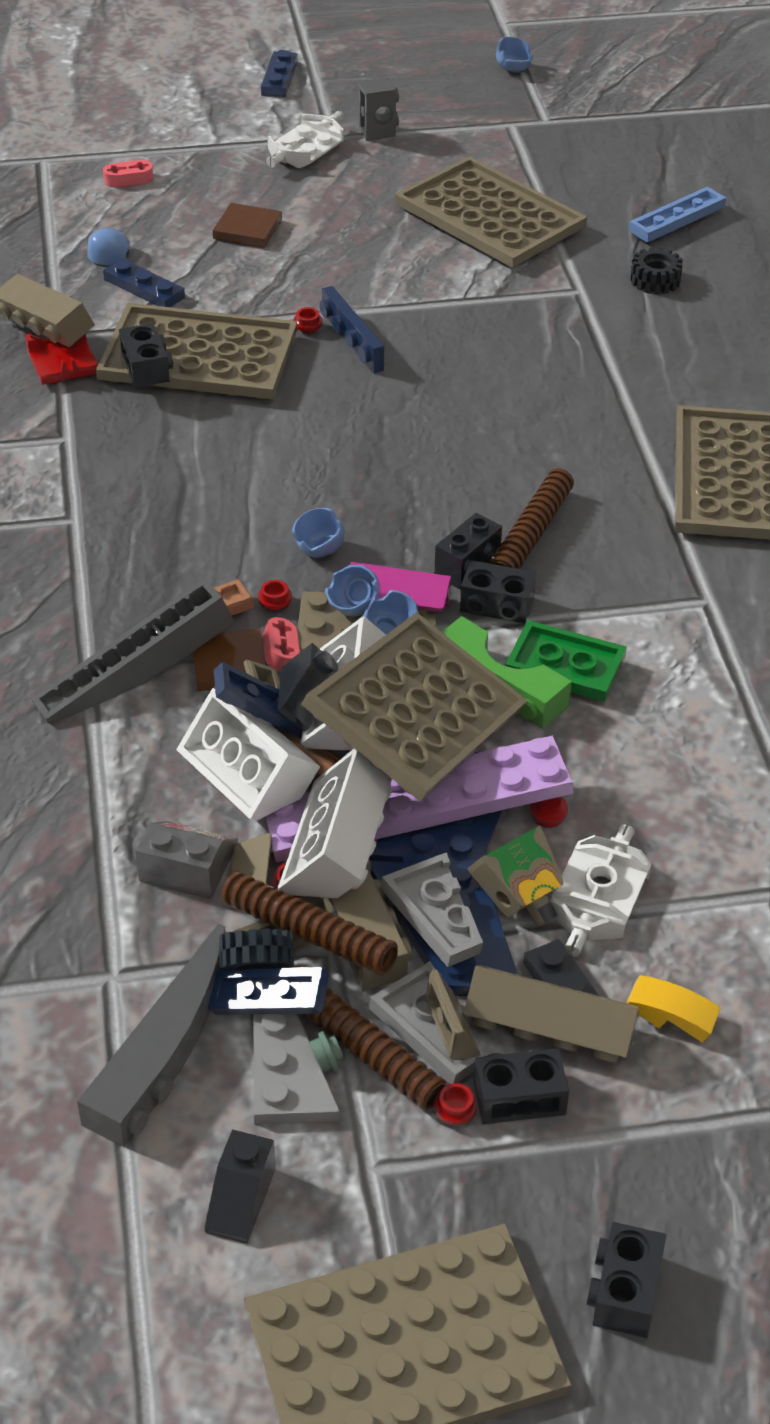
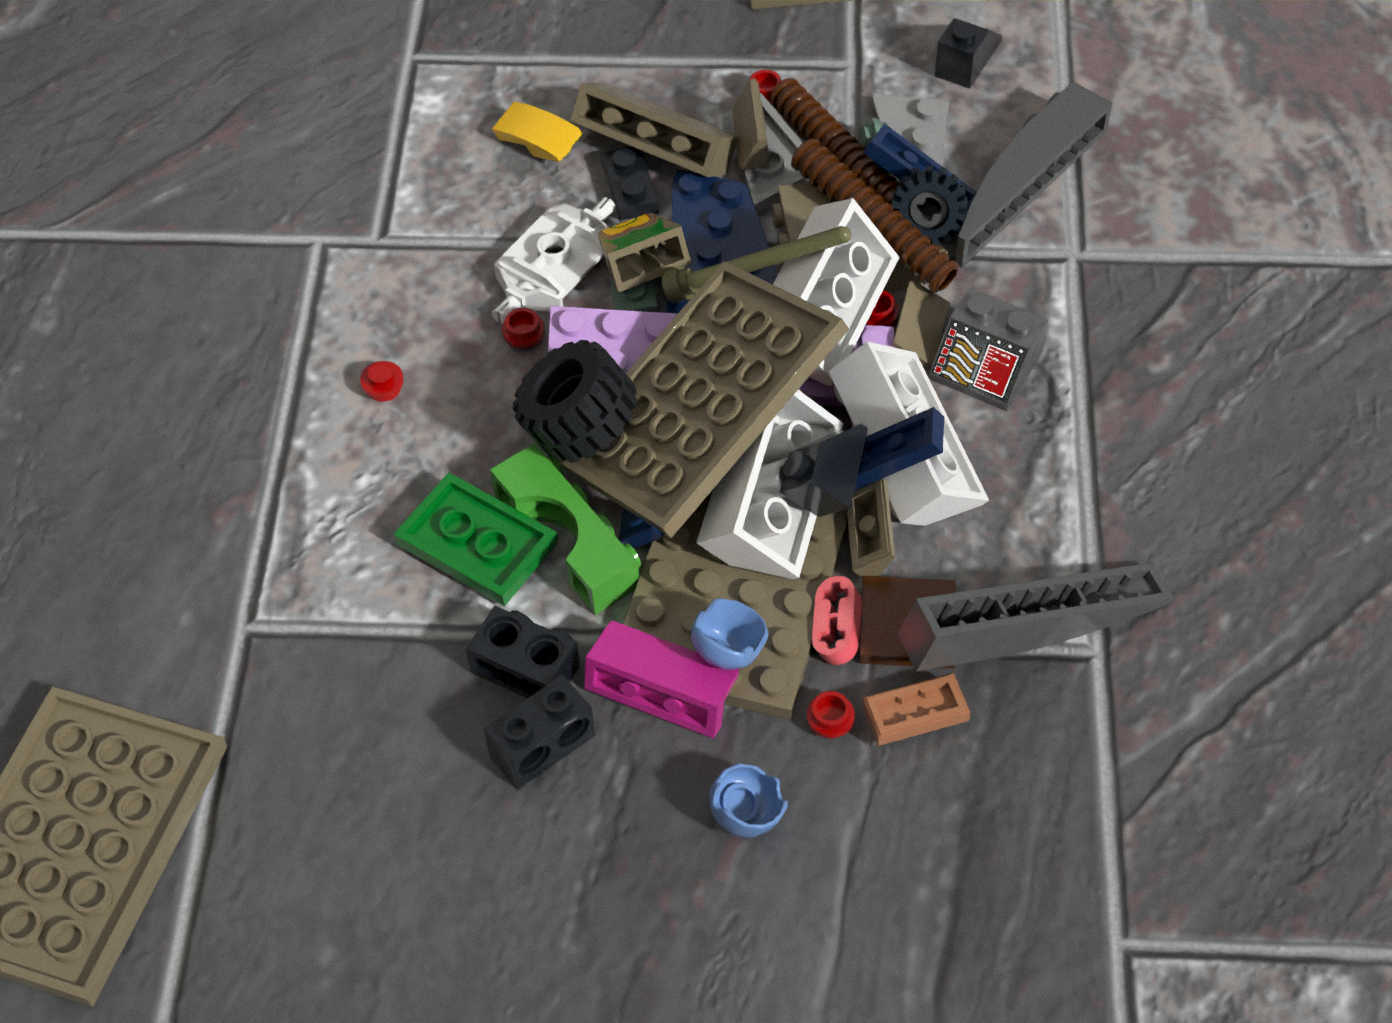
camera: 165 degrees left, 10 degrees up
(390, 610) = (687, 585): medium blue hair -> none
(434, 907) = (735, 216): light grey wing -> none
(468, 845) = (682, 283): none -> olive piece
(517, 696) = (575, 401): none -> black tyre
(522, 1093) = (702, 84): black brick -> none
(534, 519) = (422, 785): reddish brown piece -> none
(600, 820) = (522, 328): none -> red plate
(698, 764) = (382, 380): none -> red plate

